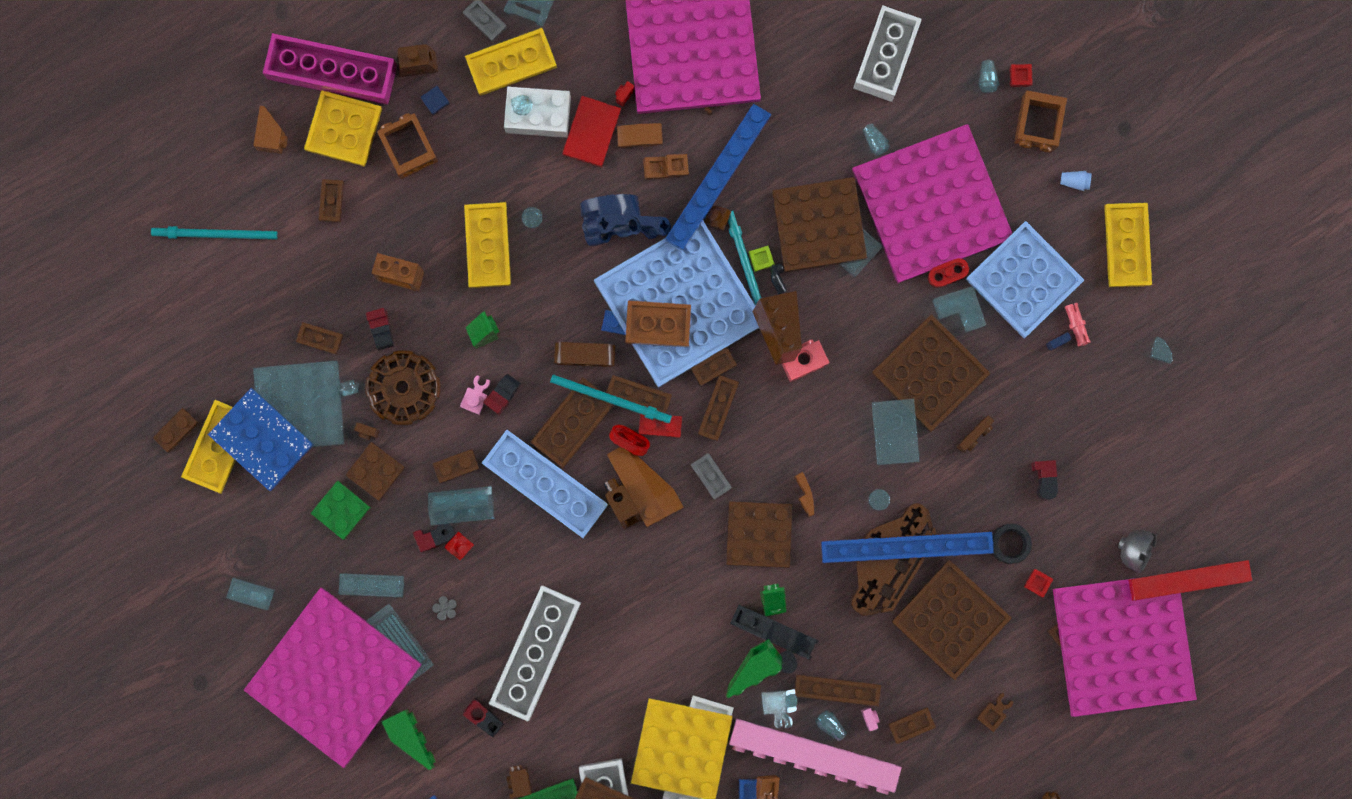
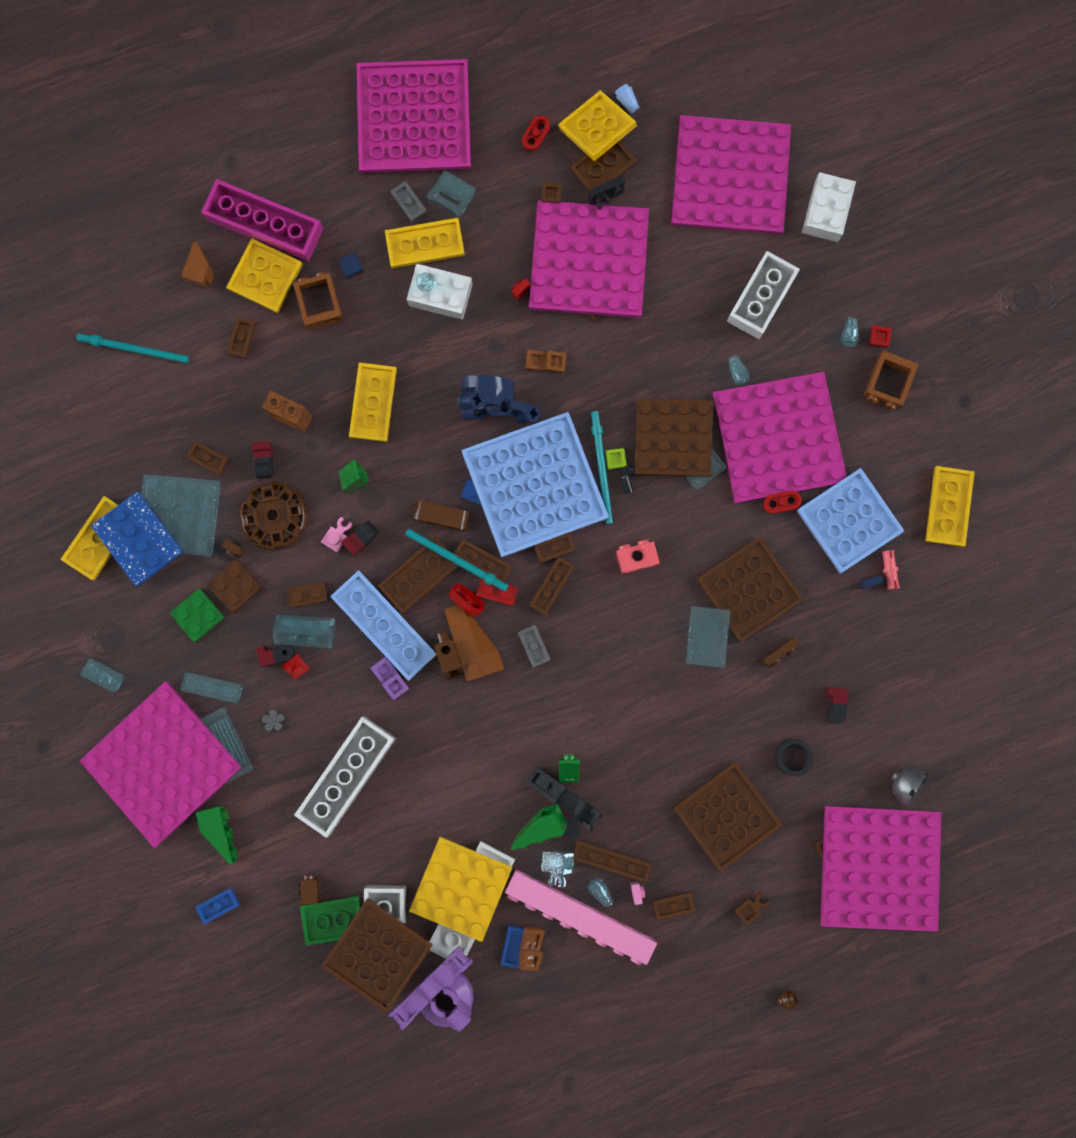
camera: 15 degrees right, 0 degrees up
(175, 430) = (64, 517): reddish brown plate -> none
(349, 388) = (225, 507): clear light blue plate -> none
(416, 60) = (339, 226): reddish brown torso -> none
(483, 718) = (288, 826): leg -> none
(532, 217) = (417, 385): clear light blue plate -> none
(561, 539) = (389, 677): none -> medium lavender slope
(591, 131) = (485, 318): red tile -> none
(639, 135) = (527, 328): dark orange slope -> none
(658, 324) = (511, 500): dark orange plate -> none
(717, 217) = (583, 414): reddish brown plate -> none
(718, 177) = (590, 379): blue plate -> none
(759, 534) = (567, 706): reddish brown plate -> none
(780, 325) = (621, 522): reddish brown wedge -> none
(806, 500) = (616, 684): dark orange slope -> none
(879, 500) = (681, 695): clear light blue tile -> none
(884, 570) = (680, 748): reddish brown connector -> none
(907, 547) = (699, 744): blue plate -> none
(965, 304) = (790, 531): clear light blue plate -> none
(1038, 583) = (812, 797): red plate -> none
(1078, 180) = (915, 440): light blue cone -> none
(1161, 351) = (962, 607): clear light blue tile -> none
(1190, 580) = (952, 821): red tile -> none

